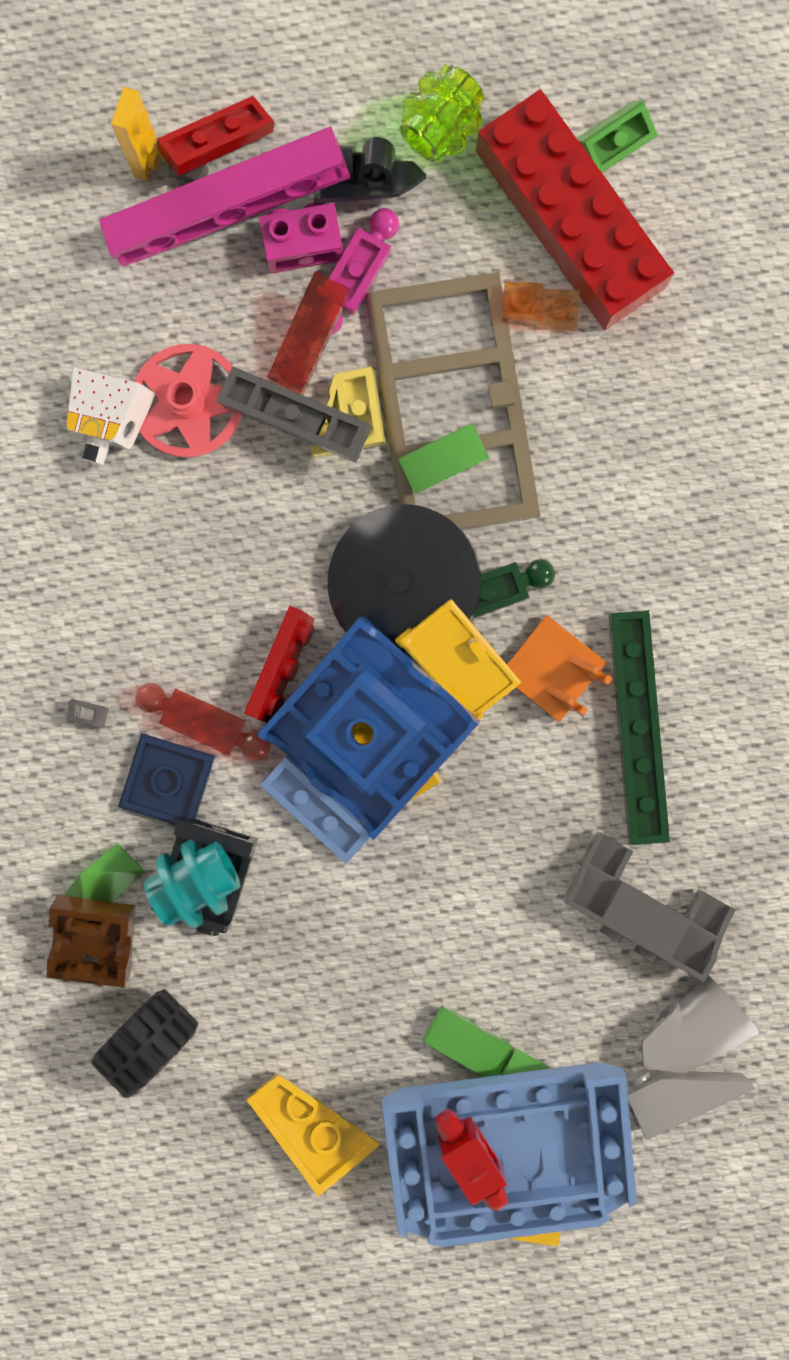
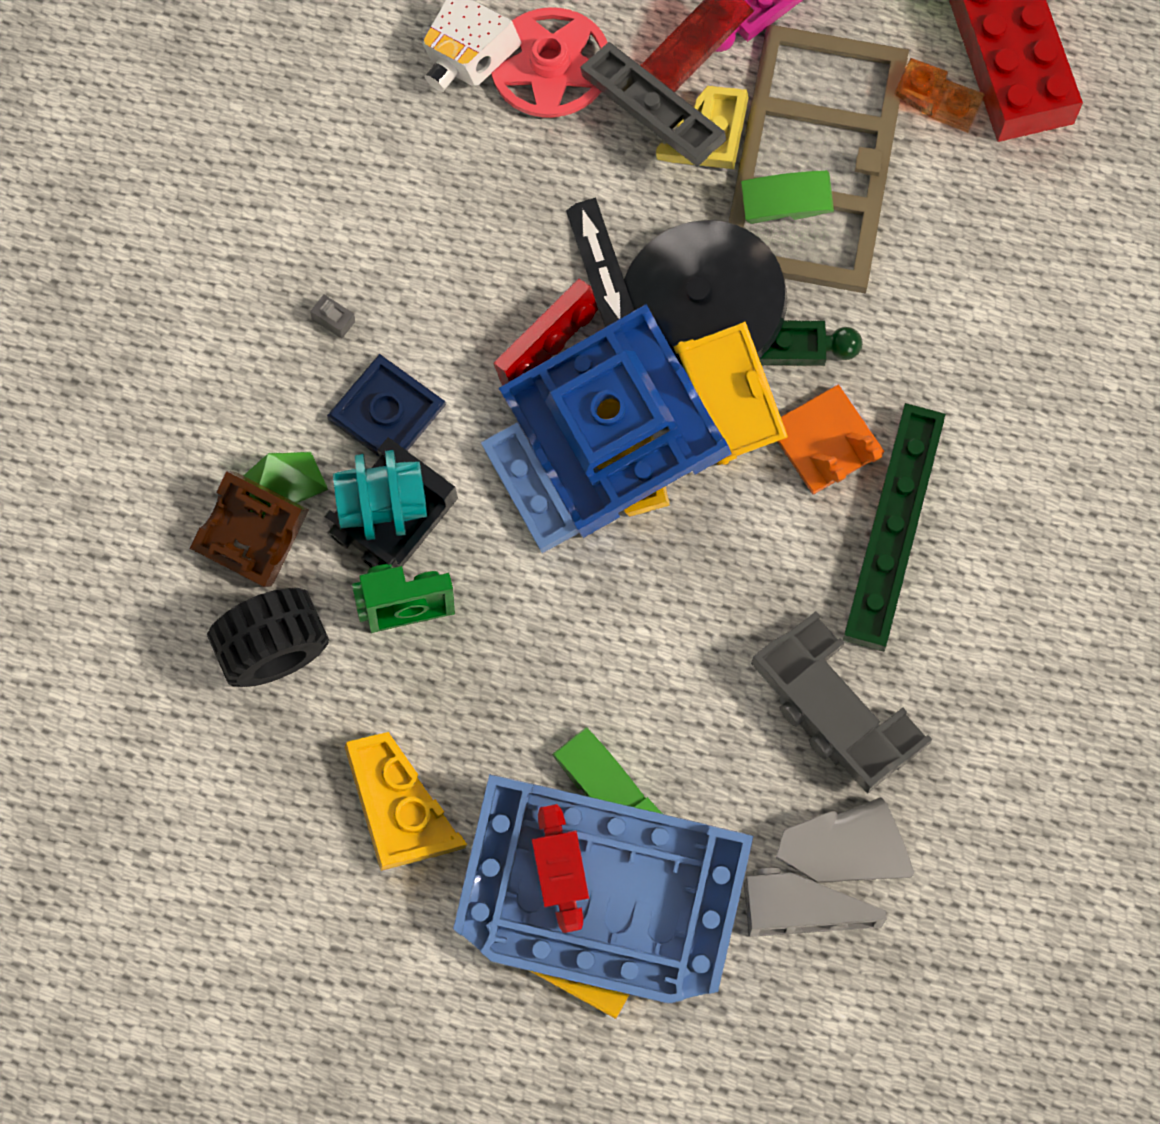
camera: 20 degrees right, 15 degrees down
(202, 721) = (446, 364): clear red plate -> none
(238, 962) = (391, 602): none -> green plate
(303, 579) = (600, 261): none -> black sticker

